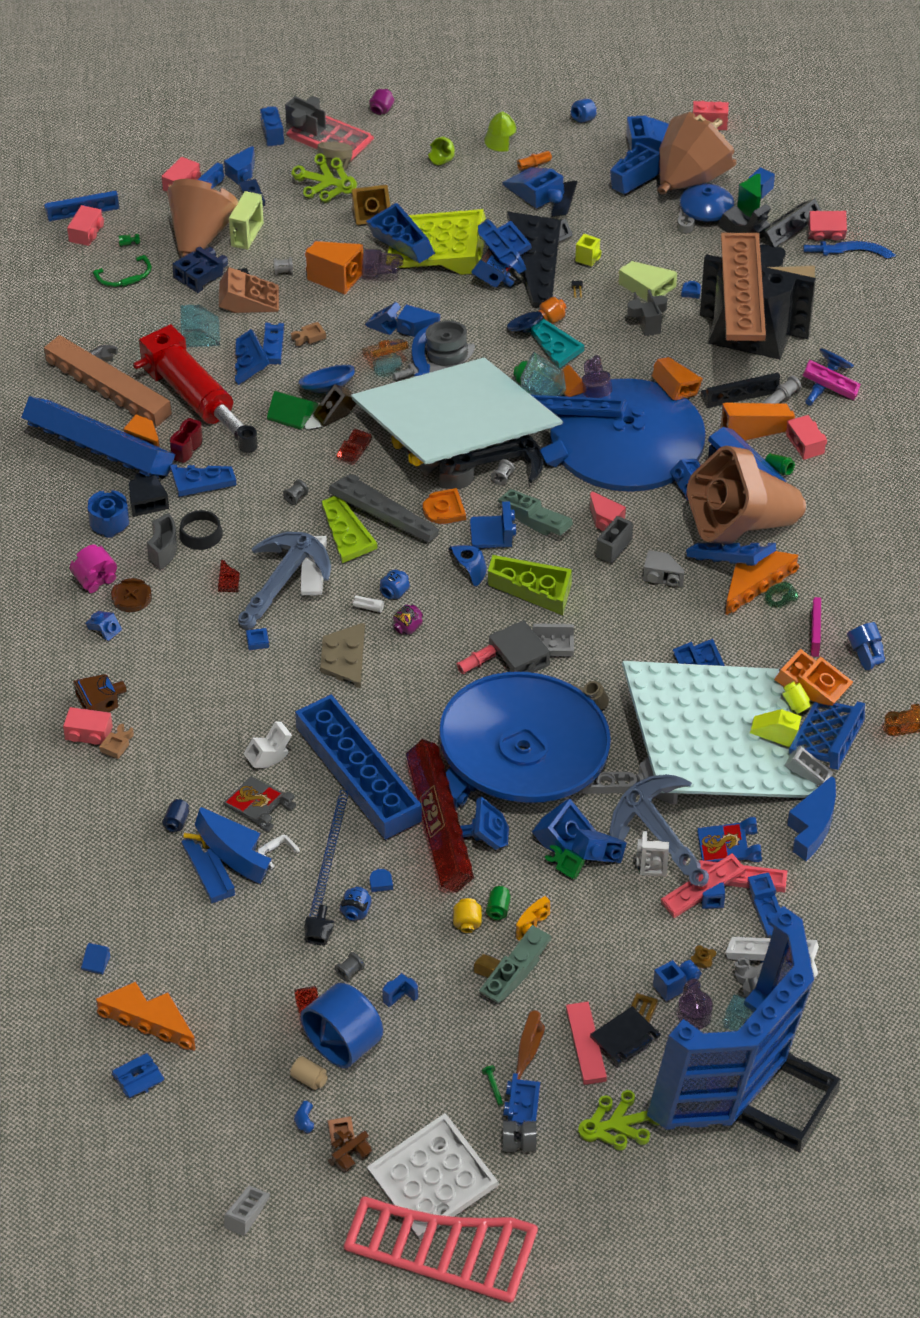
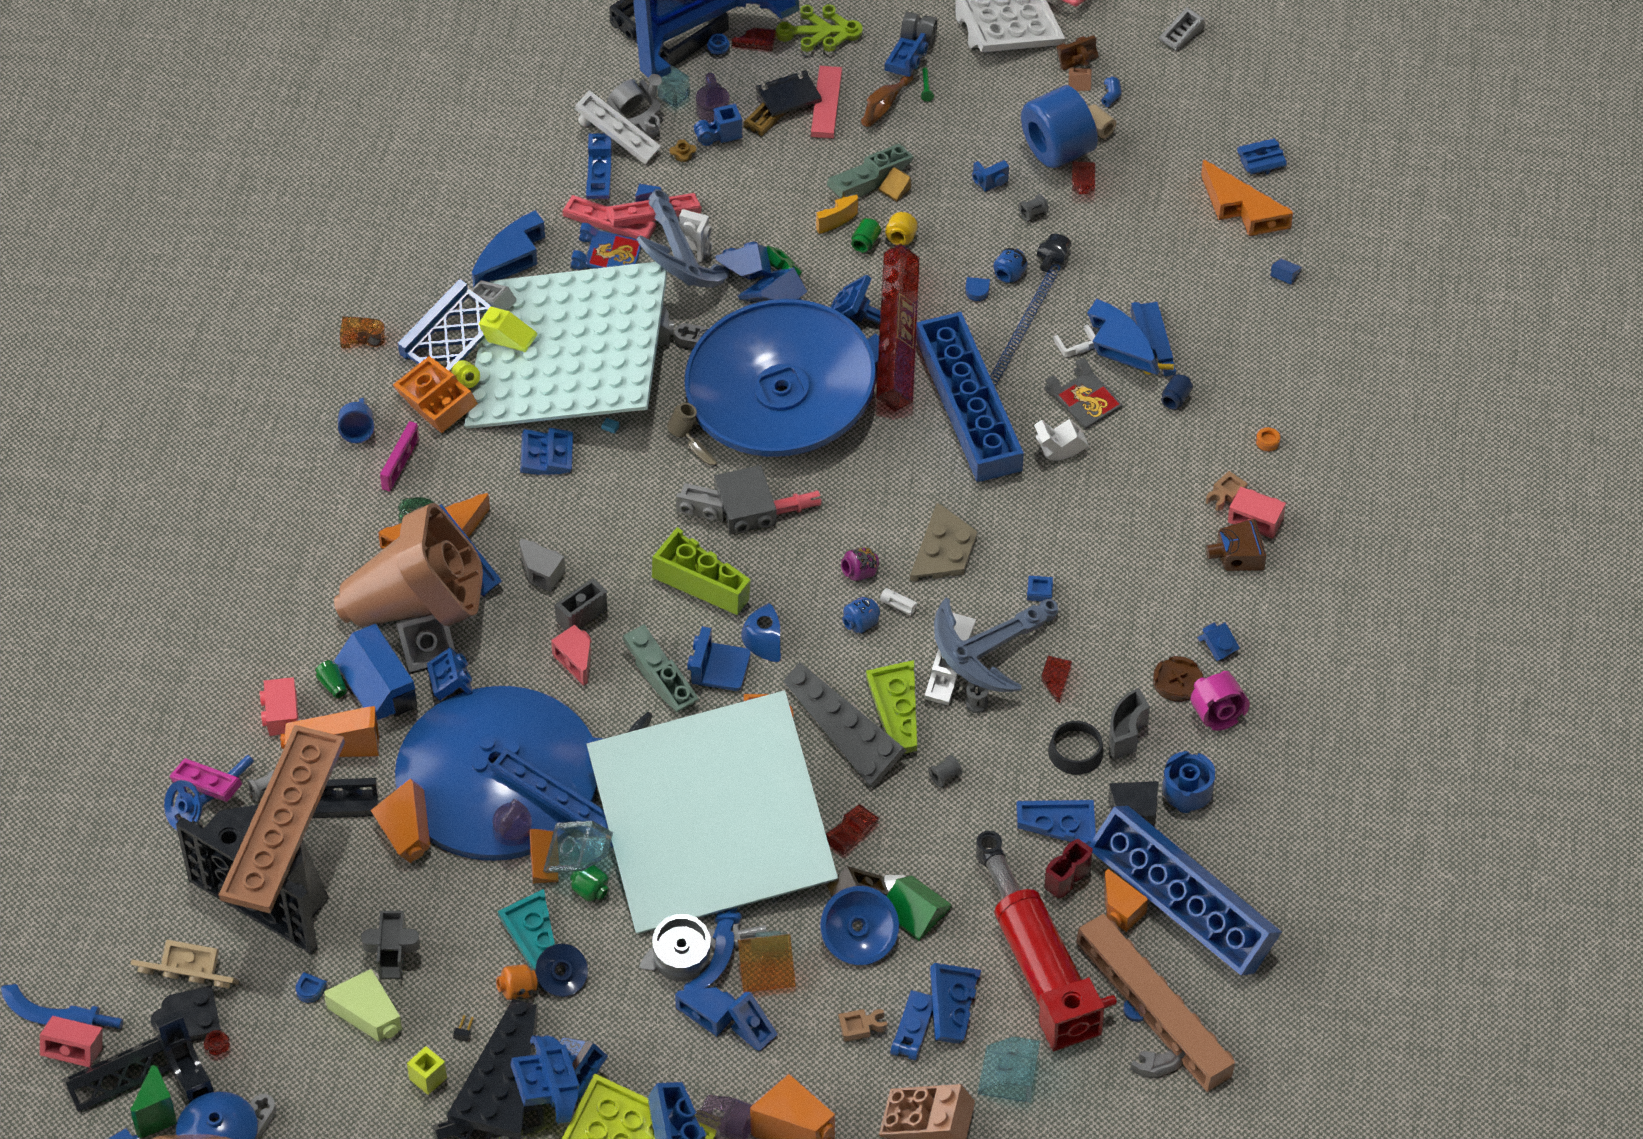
camera: 165 degrees left, 5 degrees up
(88, 798) = (1268, 439): none -> orange tile

